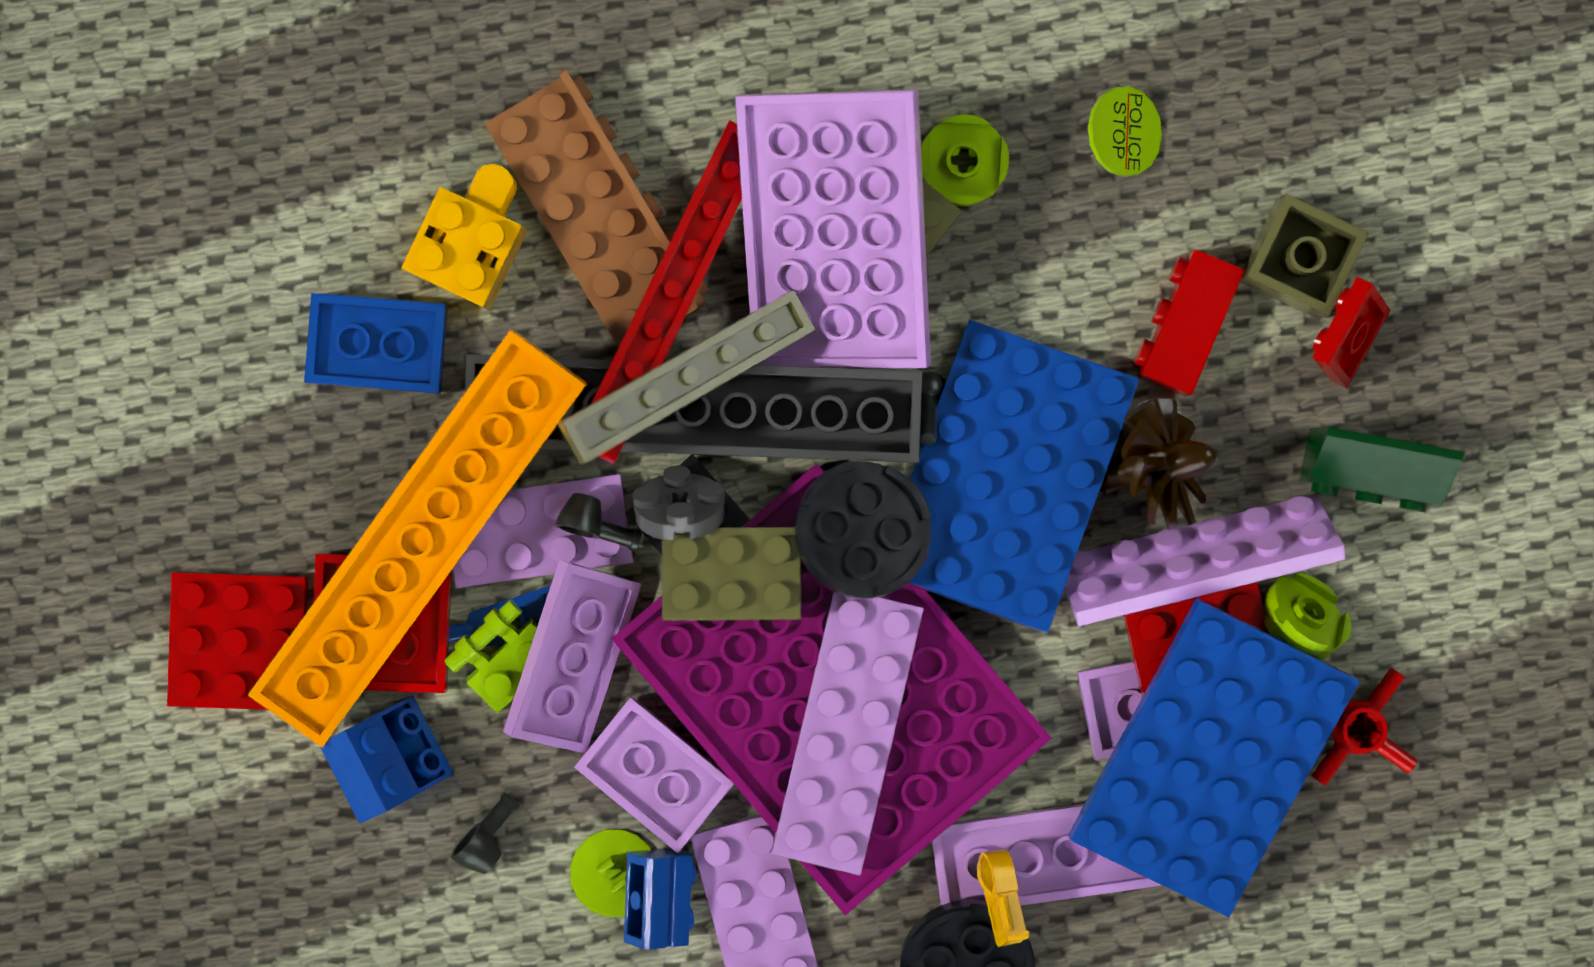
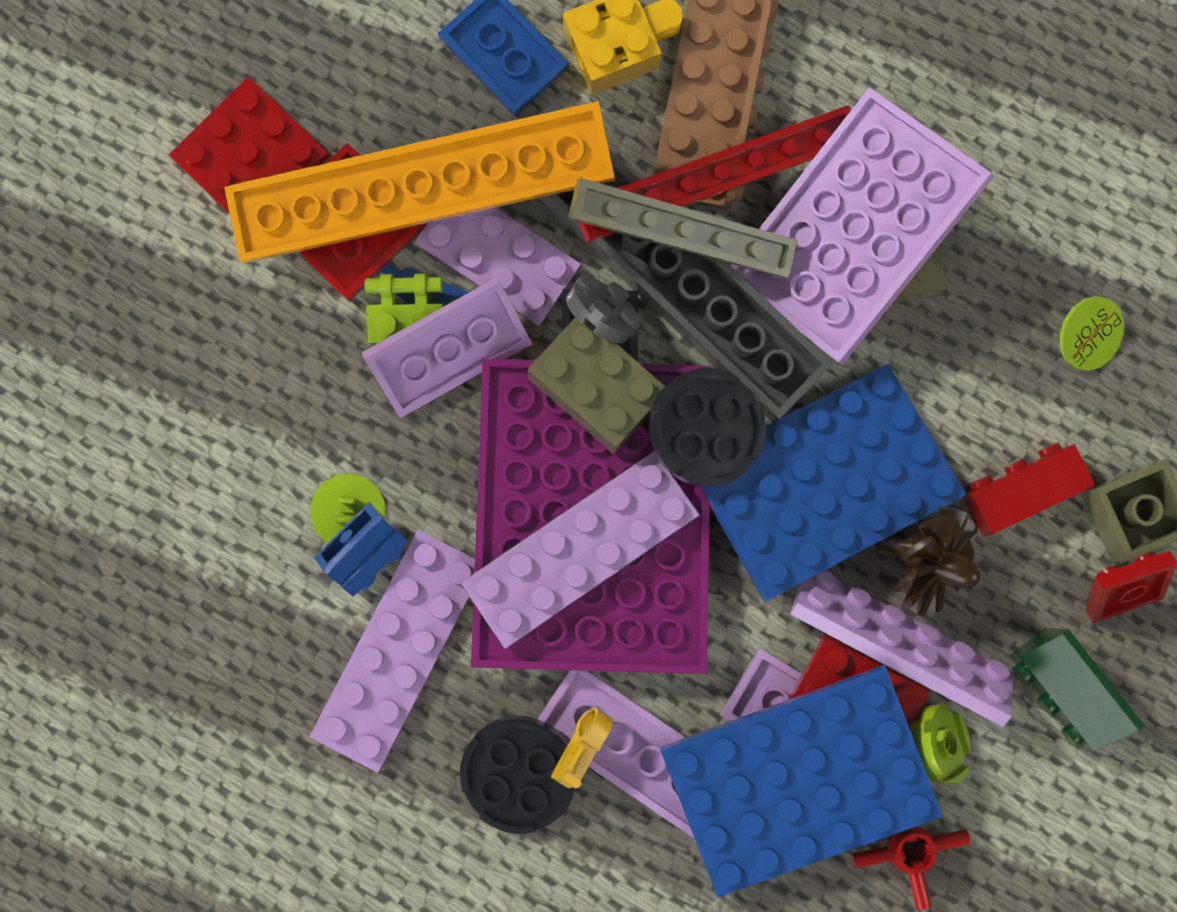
camera: 40 degrees right, 5 degrees down
(386, 759) = (272, 307): blue slope -> none
(478, 847) = (278, 417): pearl dark grey bar -> none
(584, 518) = (533, 267): pearl dark grey bar -> none
(654, 774) = (431, 470): lavender plate -> none
(931, 392) = (824, 385): pearl dark grey bar -> none
(982, 143) = (993, 262): lime plate -> none

